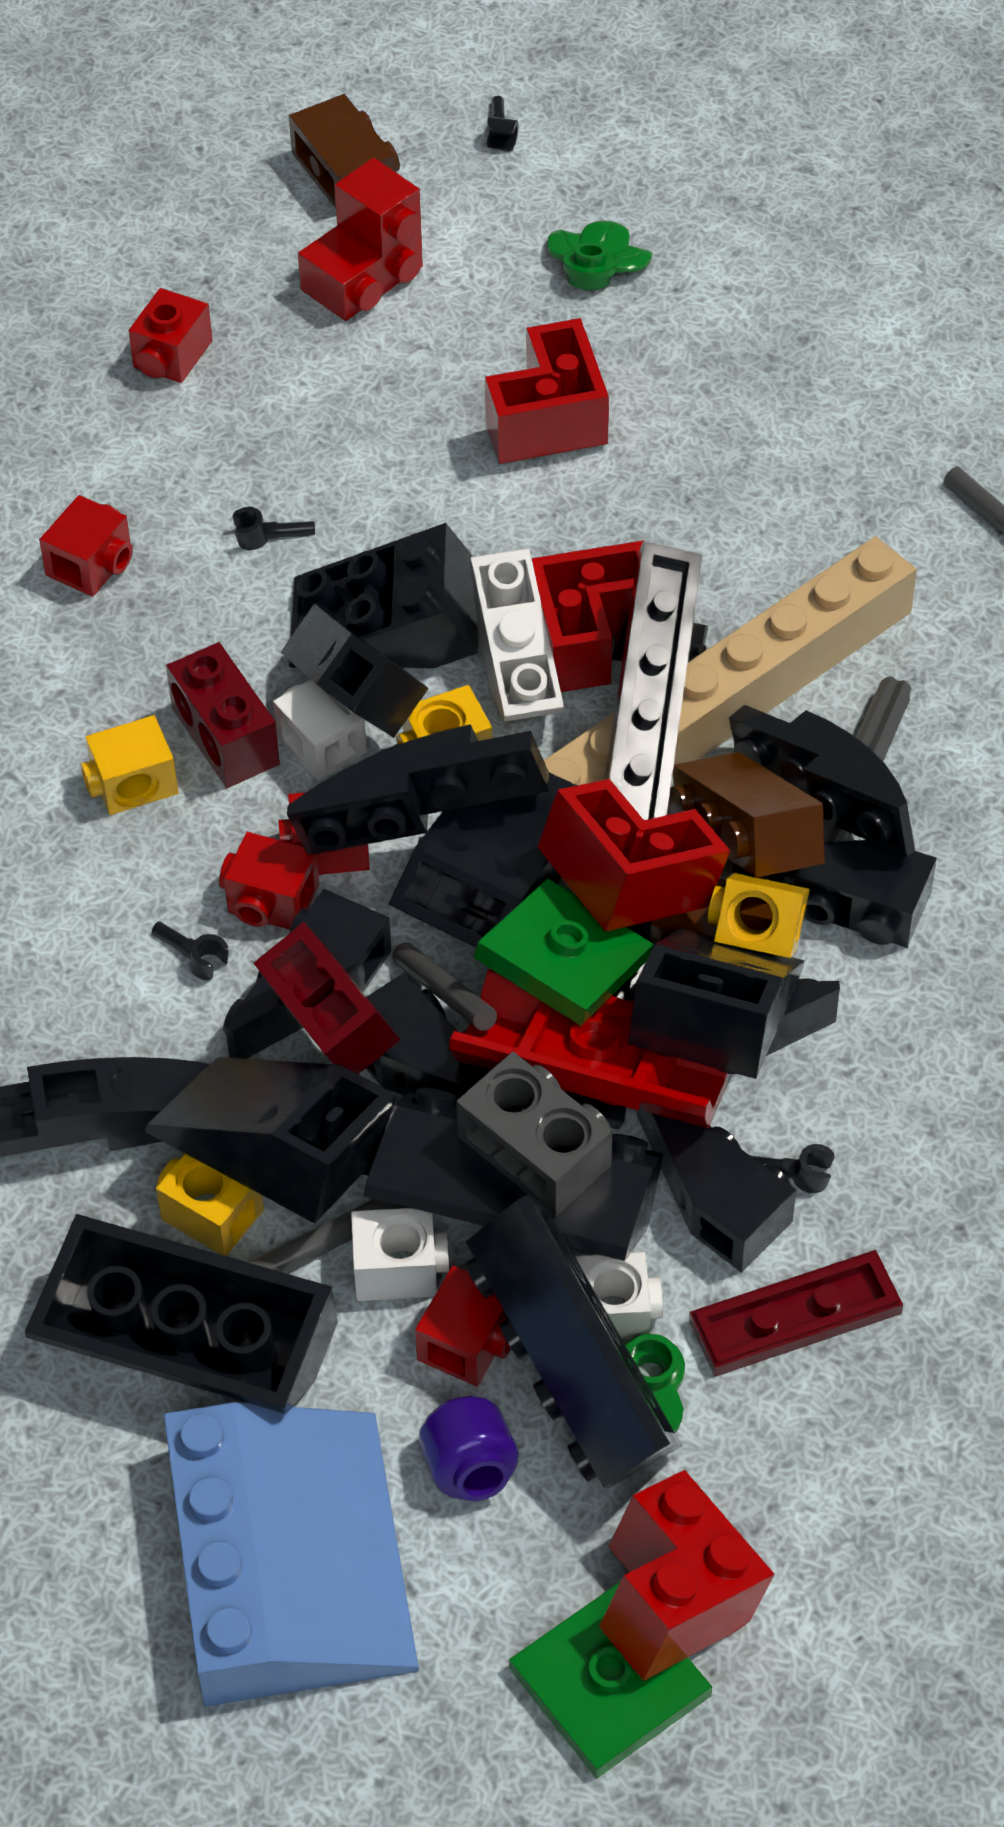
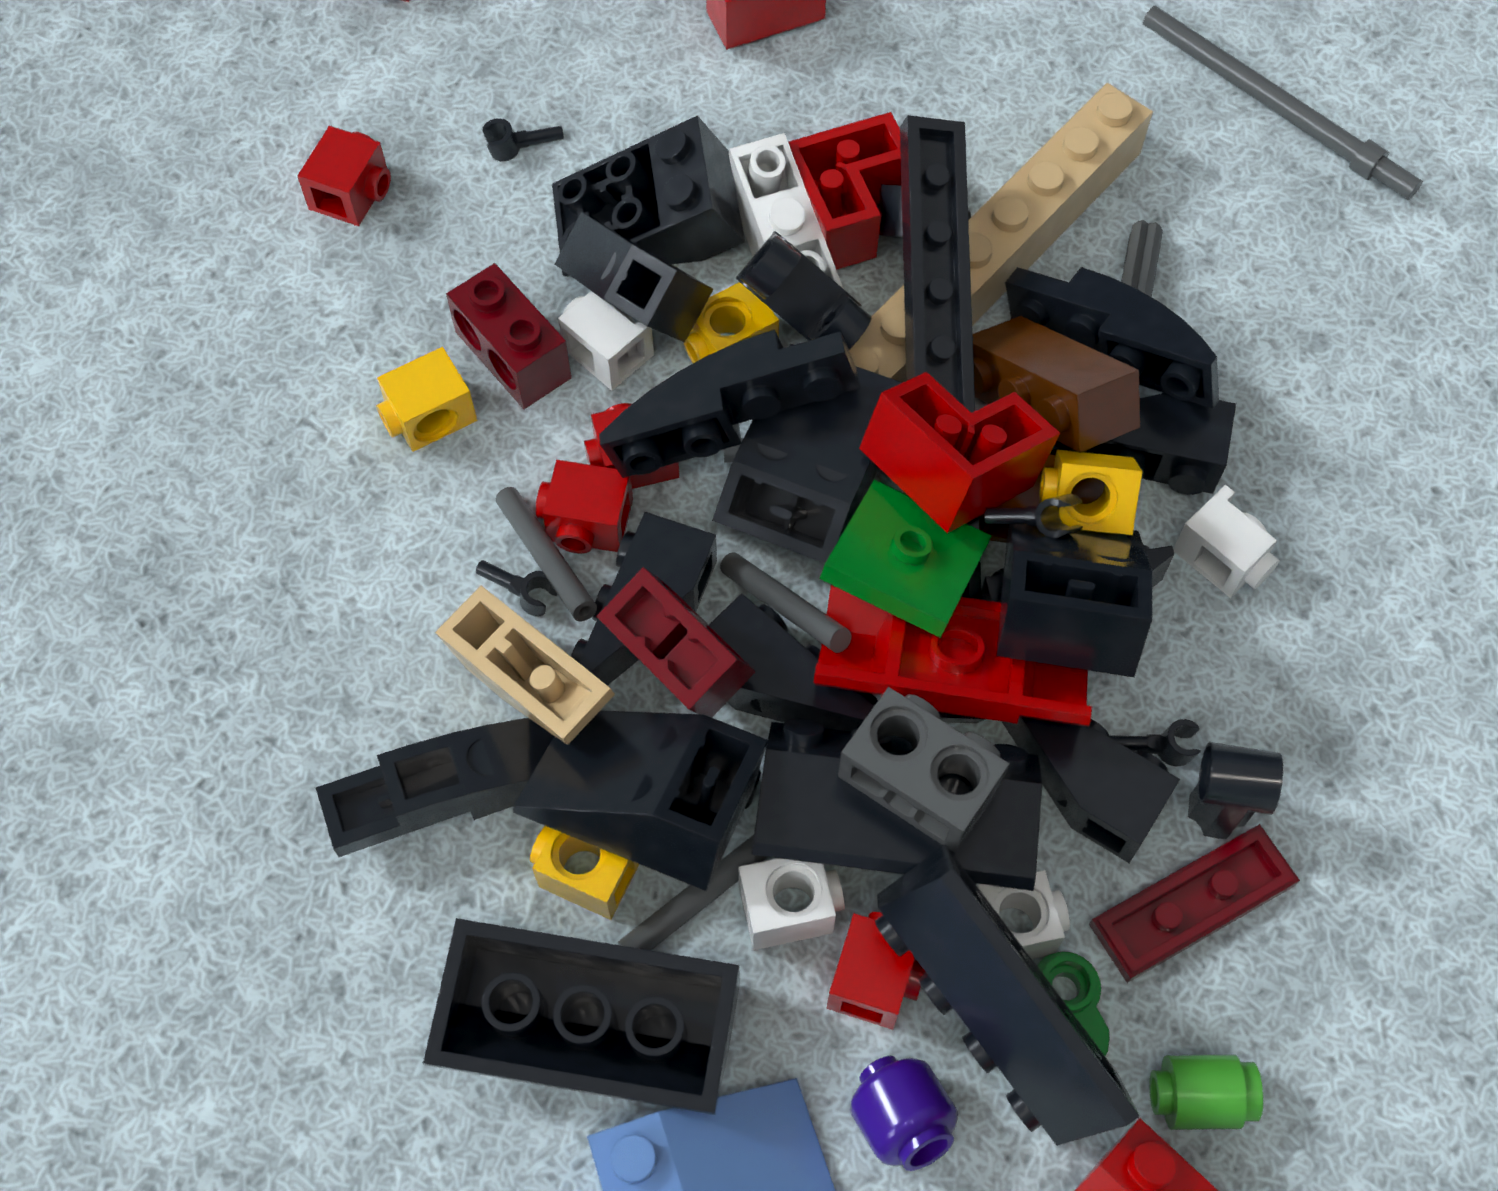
camera: 10 degrees left, 10 degrees up
(176, 1006) = (523, 666): none -> tan slope
(221, 918) = (546, 554): none -> dark grey piece
(512, 696) = (802, 292): none -> black piece
(702, 926) = (1043, 516): none -> black hand
(762, 1470) = (1206, 1092): none -> bright green brick
(844, 1204) = (1233, 787): none -> black piece
(902, 991) = (1227, 545): none -> white brick

